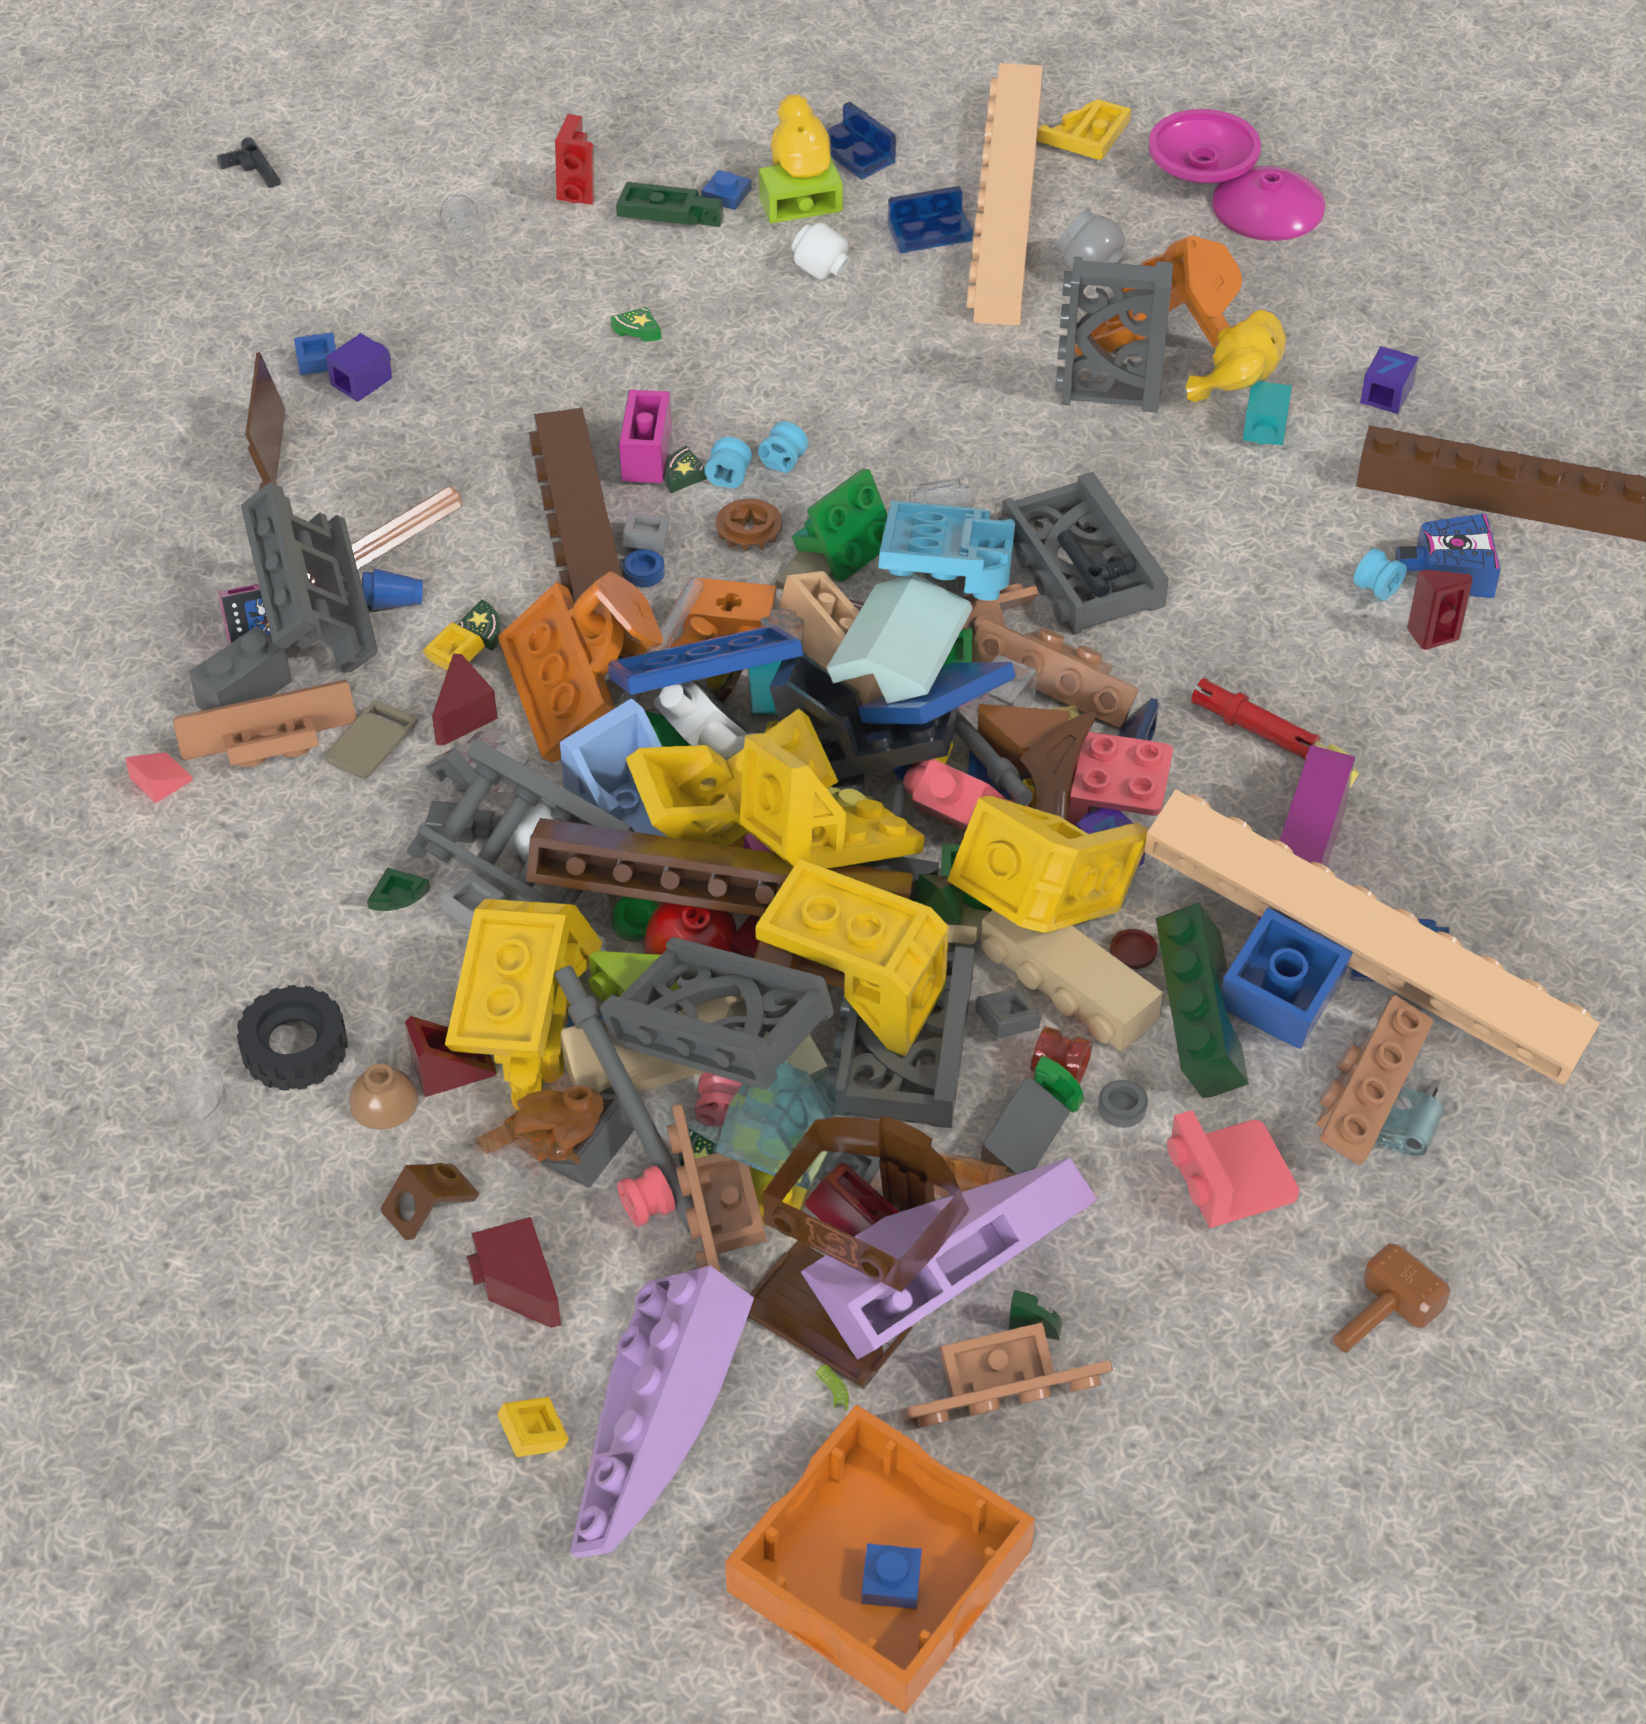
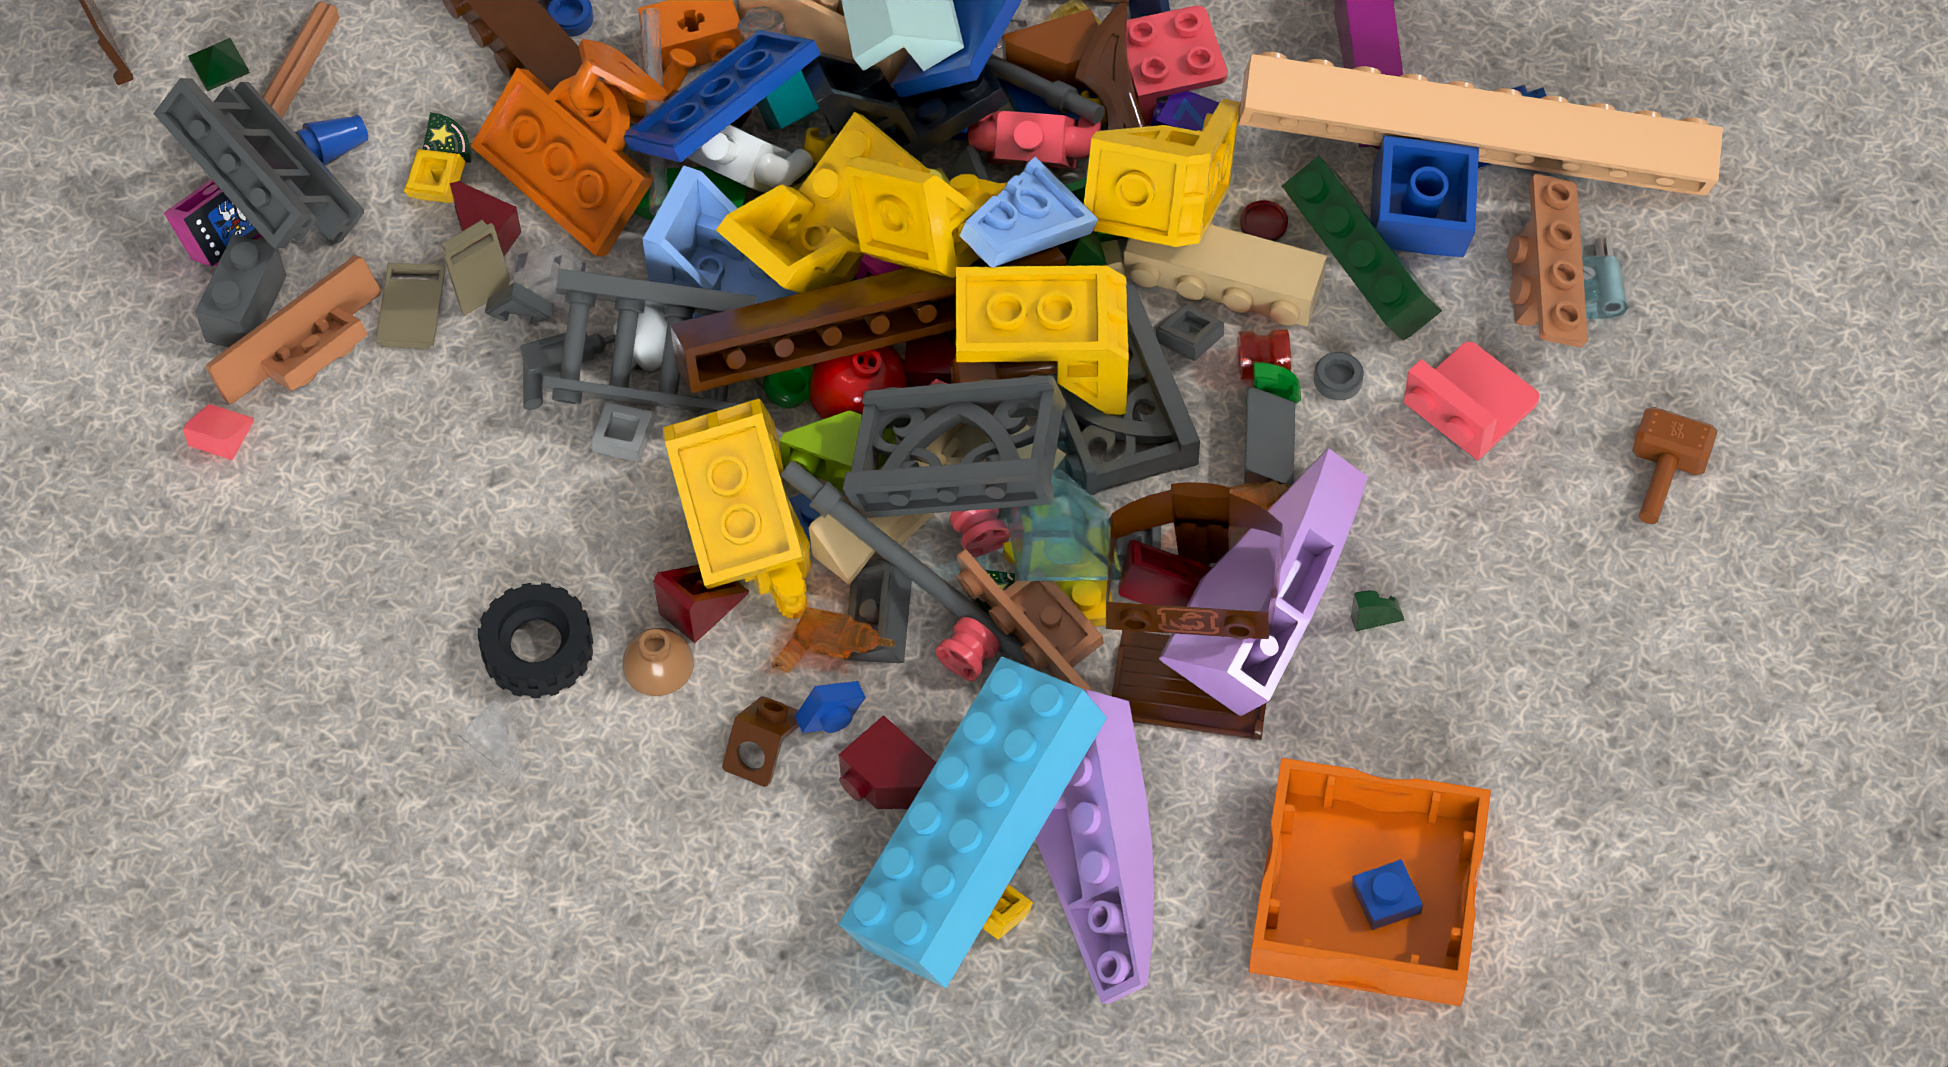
camera: 25 degrees left, 10 degrees up
(347, 503) = (218, 64): none -> dark green slope
(396, 889) = (537, 450): dark green tile -> none
(429, 726) = (478, 269): none -> dark tan piece
(494, 1193) = (830, 707): none -> blue plate
(543, 1337) = (973, 821): none -> medium azure brick
(568, 1113) = (850, 601): dark orange plate -> none
(837, 1380) = (1235, 752): lime leg -> none
(892, 847) = (1027, 218): none -> light blue wing
(1001, 1367) = (1375, 670): nougat bracket -> none

